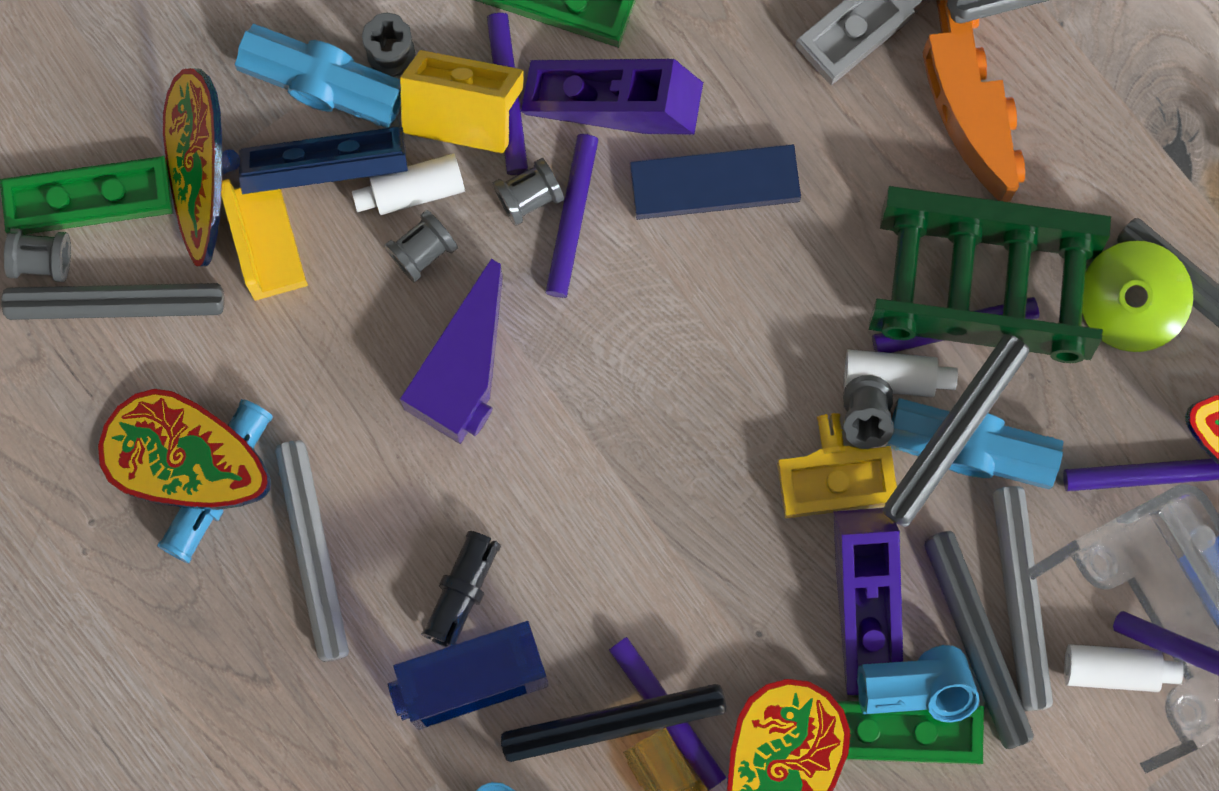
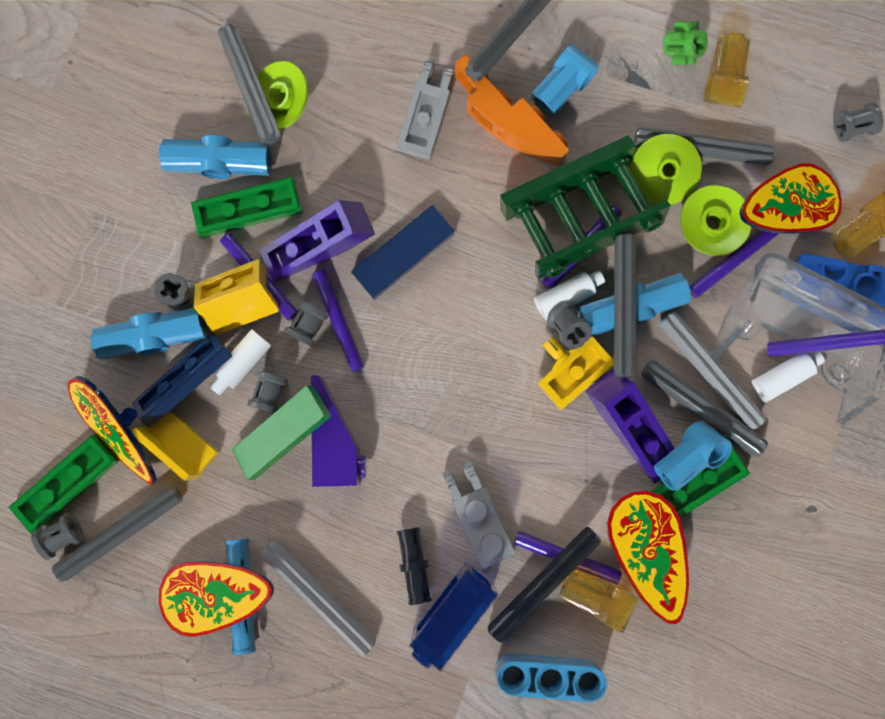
camera: 30 degrees left, 5 degrees up
(405, 306) = (281, 432): none -> tile
(585, 588) = (480, 519): none -> light grey hinge
(1093, 90) = (570, 73): none -> dark azure piece
(1157, 375) = (722, 206): none -> lime dish

